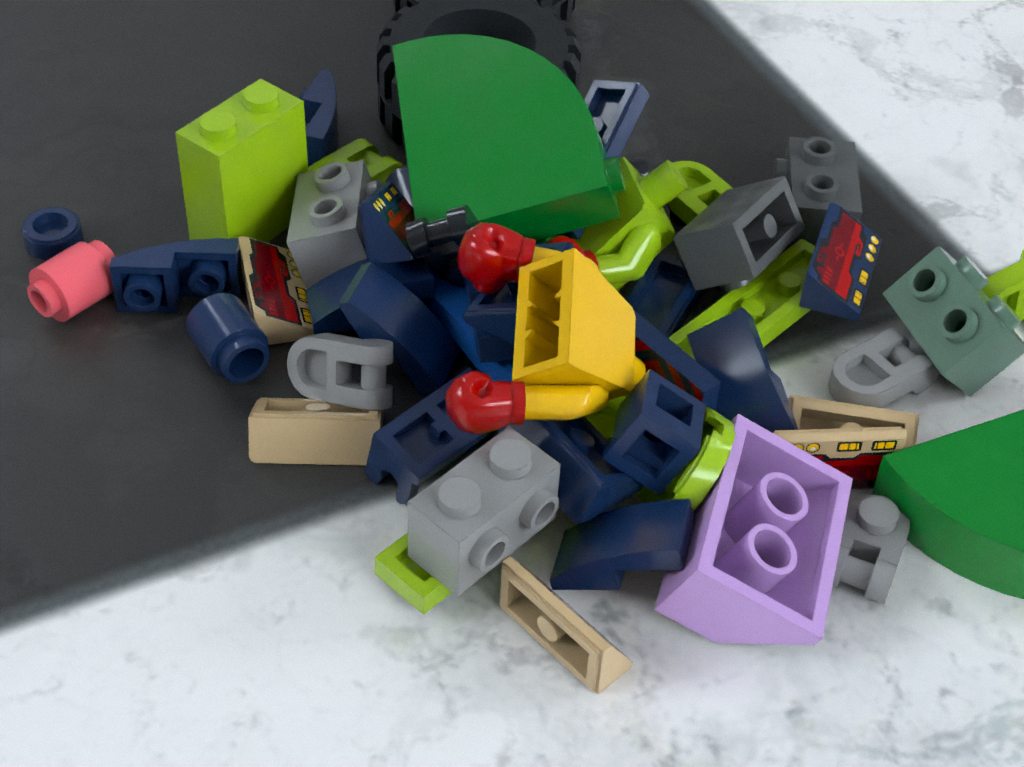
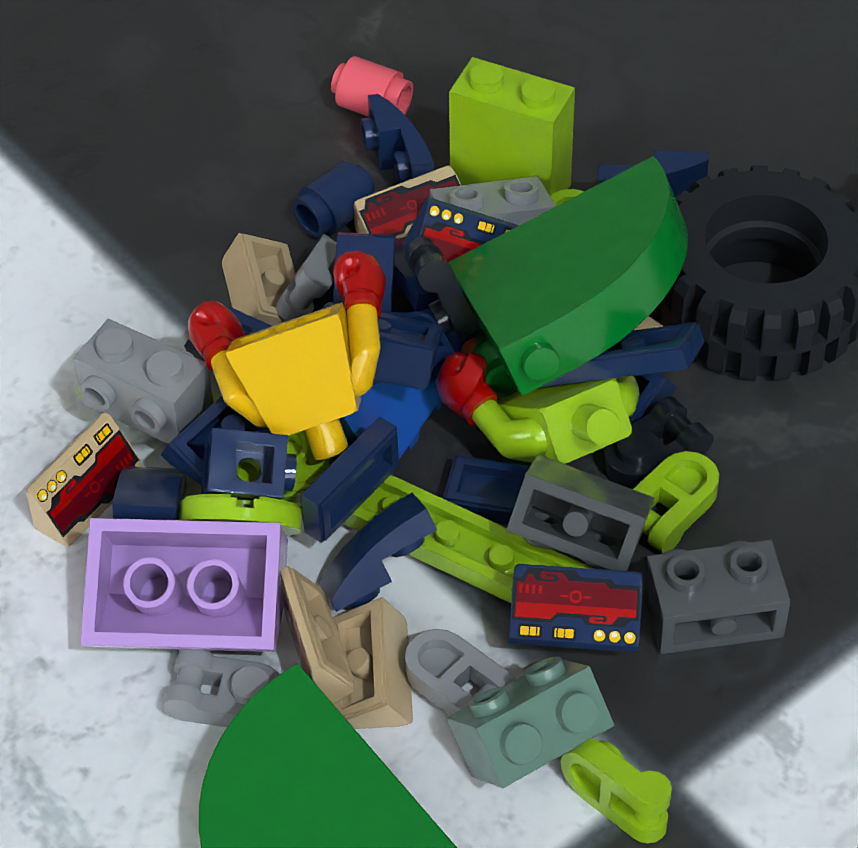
camera: 80 degrees right, 5 degrees up
(50, 231) = (440, 63): dark blue tile -> none

